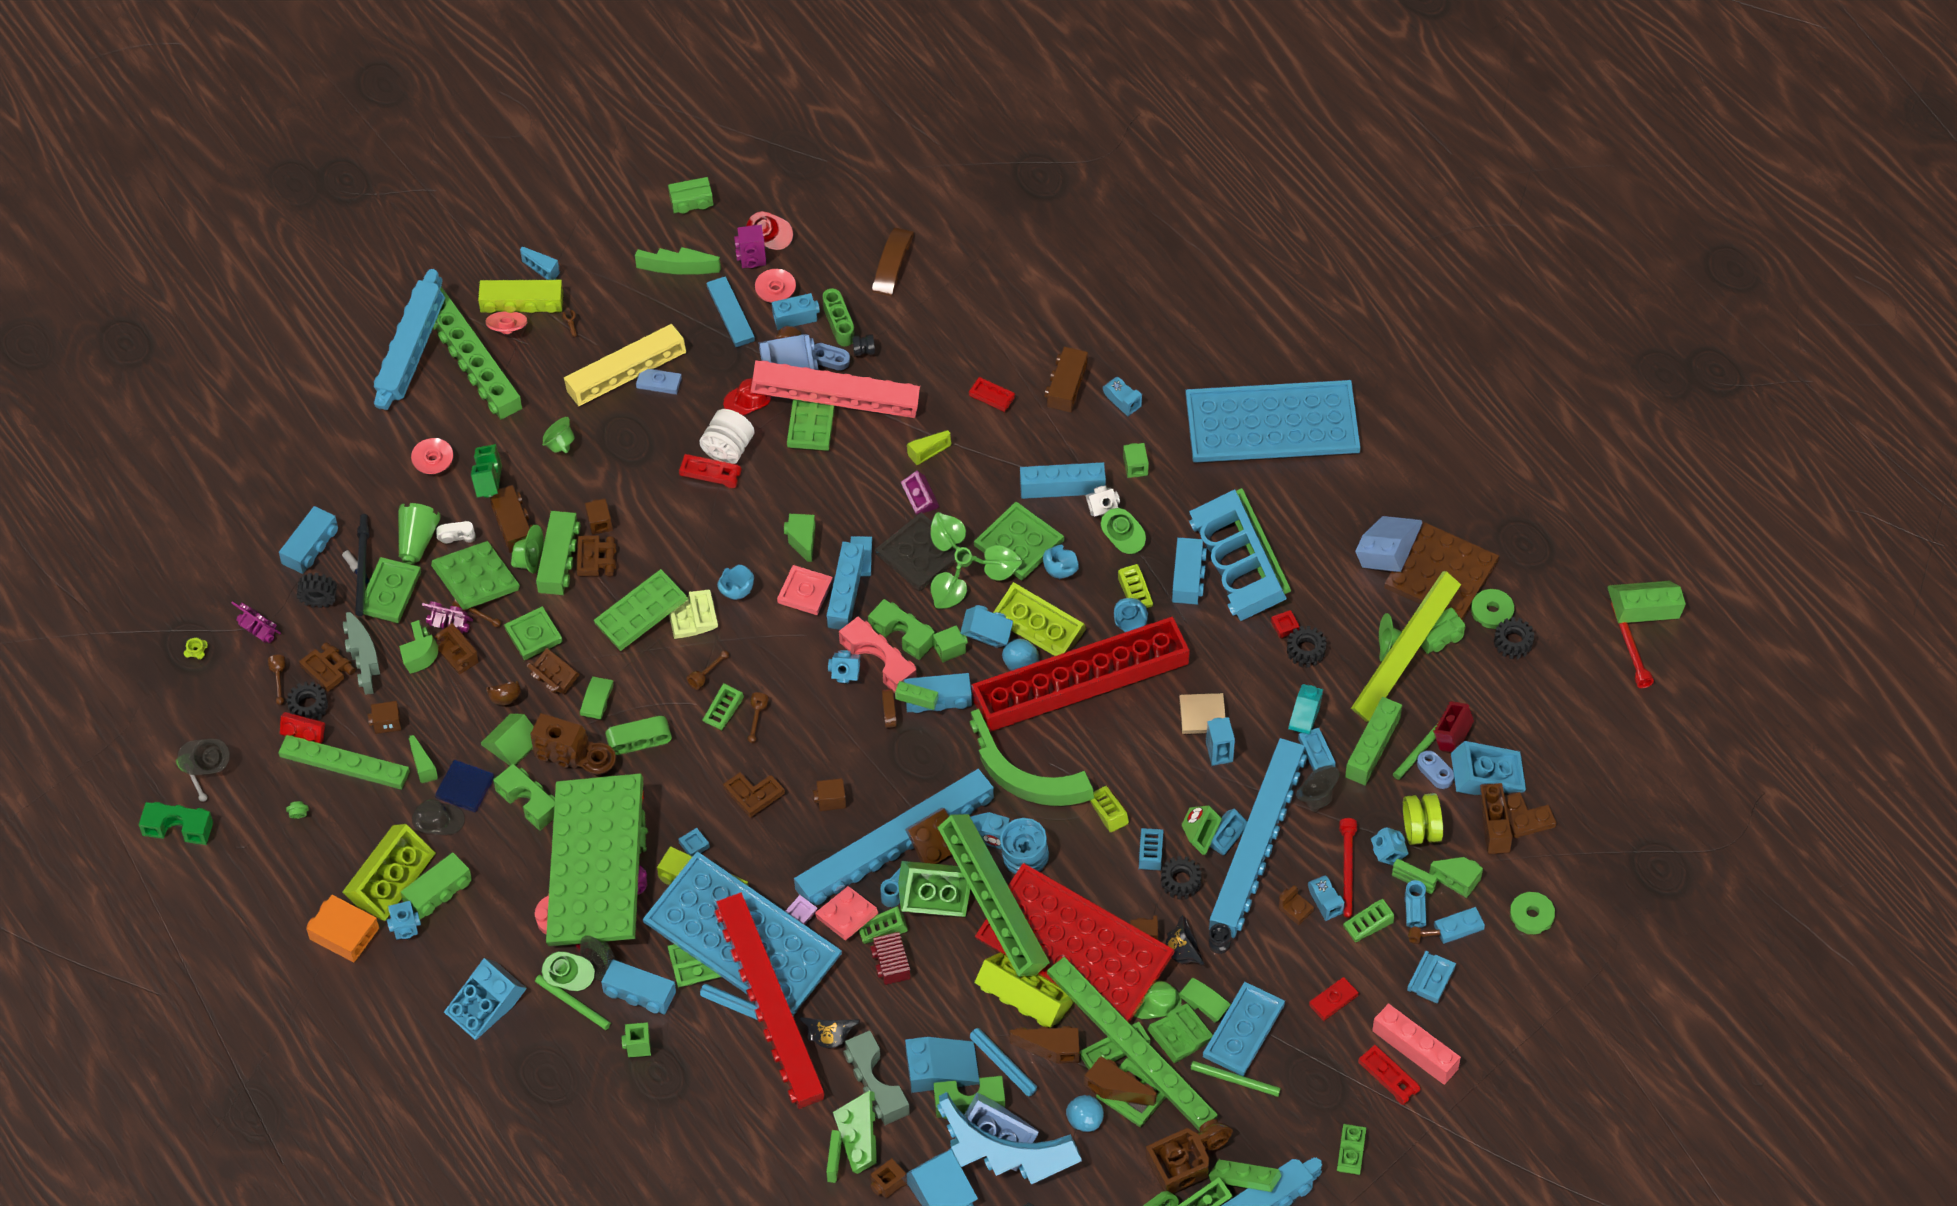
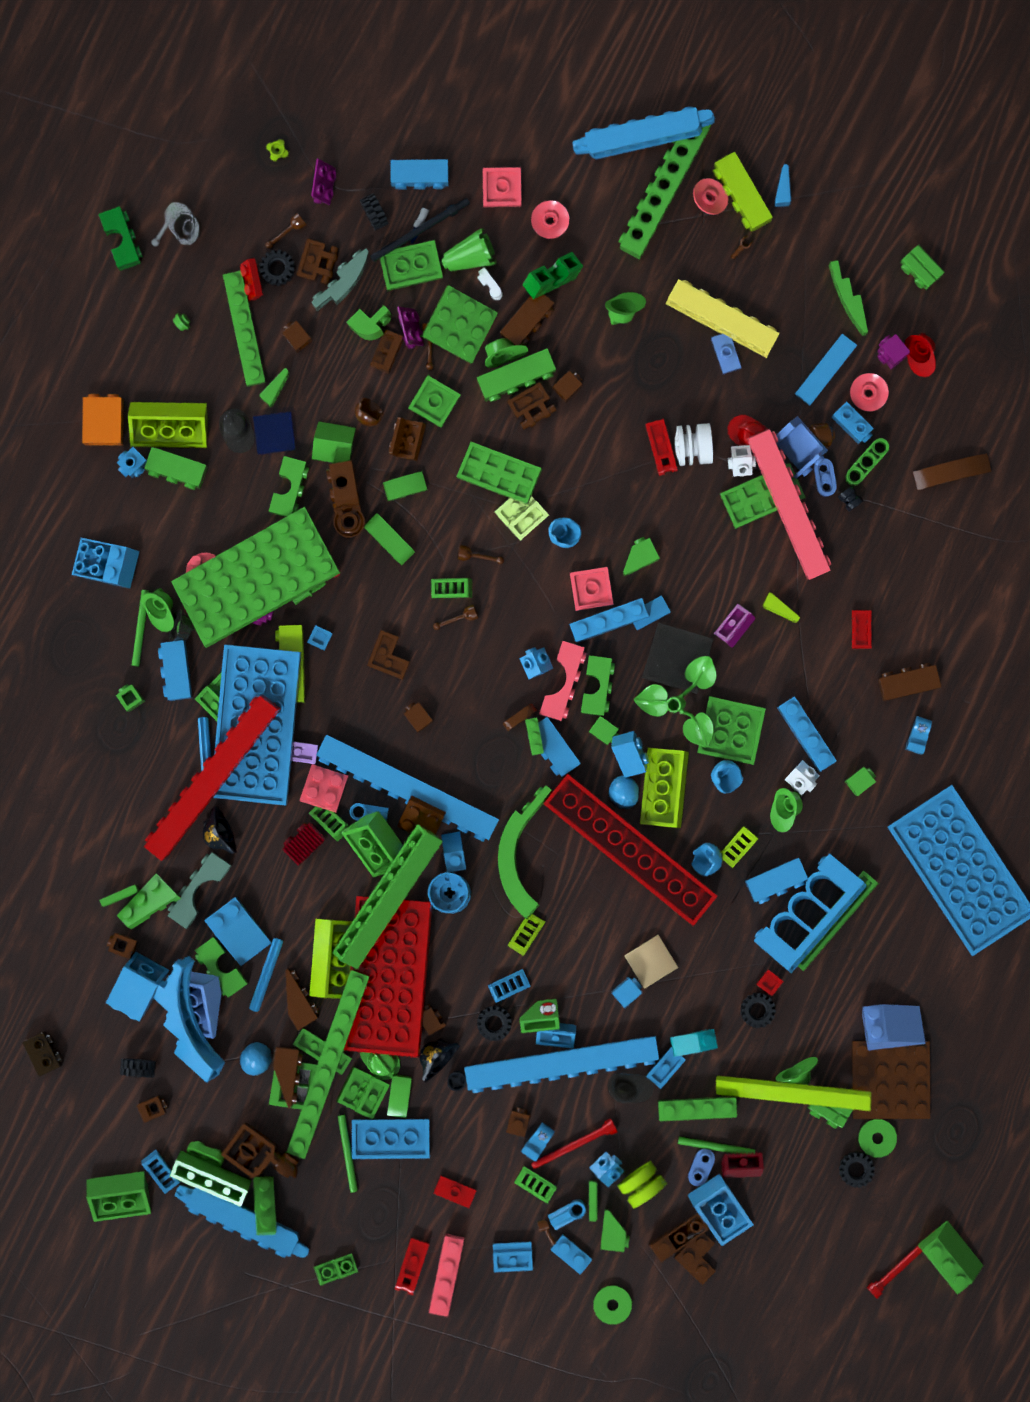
camera: 65 degrees right, 30 degrees up
(372, 481) = (502, 187): none -> coral plate
(768, 410) = (741, 460): none -> white brick

